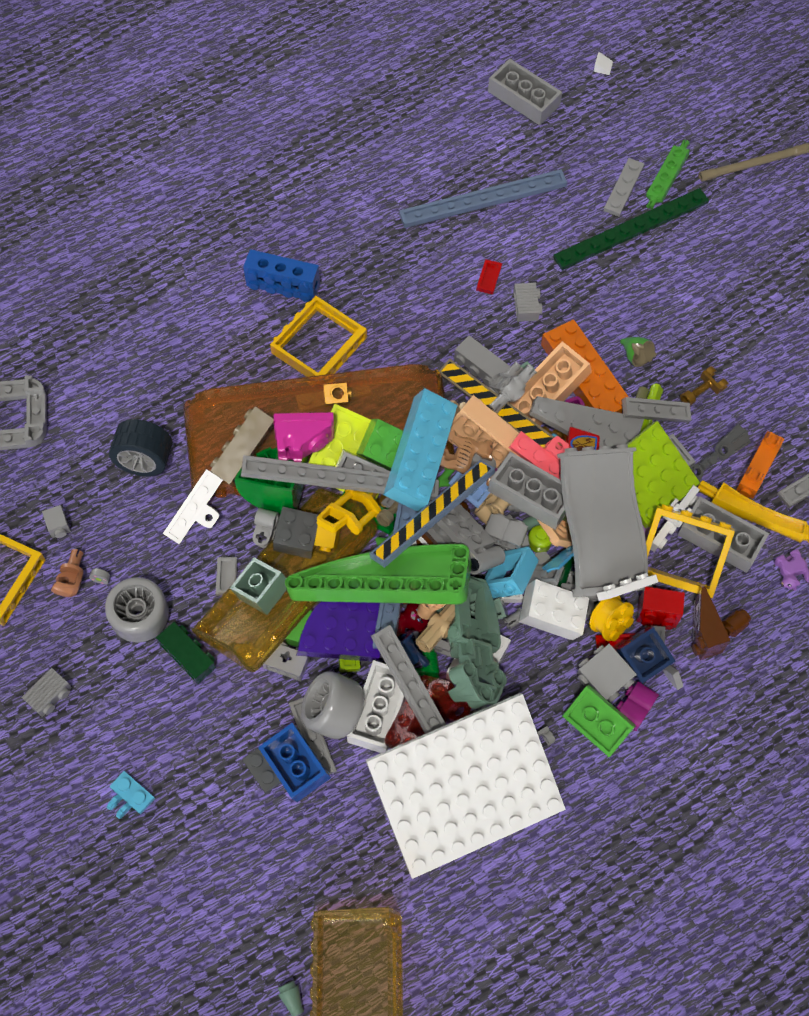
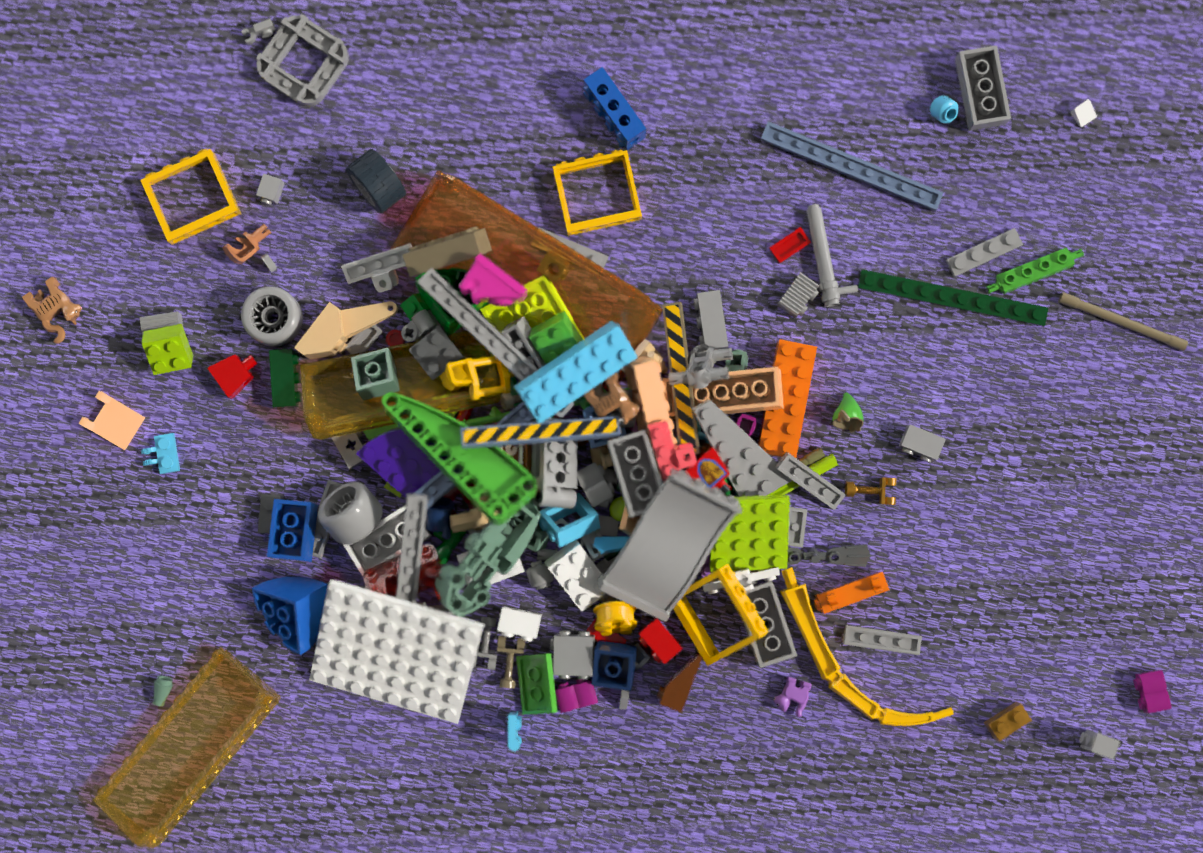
camera: 40 degrees right, 20 degrees up
(64, 803) = (114, 422): none -> light nougat flag
(67, 702) = (167, 349): none -> lime brick
(138, 682) = (233, 373): none -> red torso
(198, 574) = (335, 326): none -> tan slope
(246, 515) = (413, 305): none -> green brick
(249, 553) = (394, 338): none -> red tile
(350, 827) = (292, 609): none -> blue brick
(512, 120) = (944, 109): none -> medium azure head
(524, 637) = (539, 575): none -> light grey head
(543, 281) = (828, 285): none -> light grey cylinder
(543, 682) = (519, 622): none -> white brick
(573, 741) = (507, 681): none -> dark tan bar
(615, 771) = (514, 725): none -> medium azure plate
(626, 586) = (640, 609): white plate -> none
(705, 330) = (922, 443): none -> light grey brick
(736, 622) = (709, 697): reddish brown brick -> none

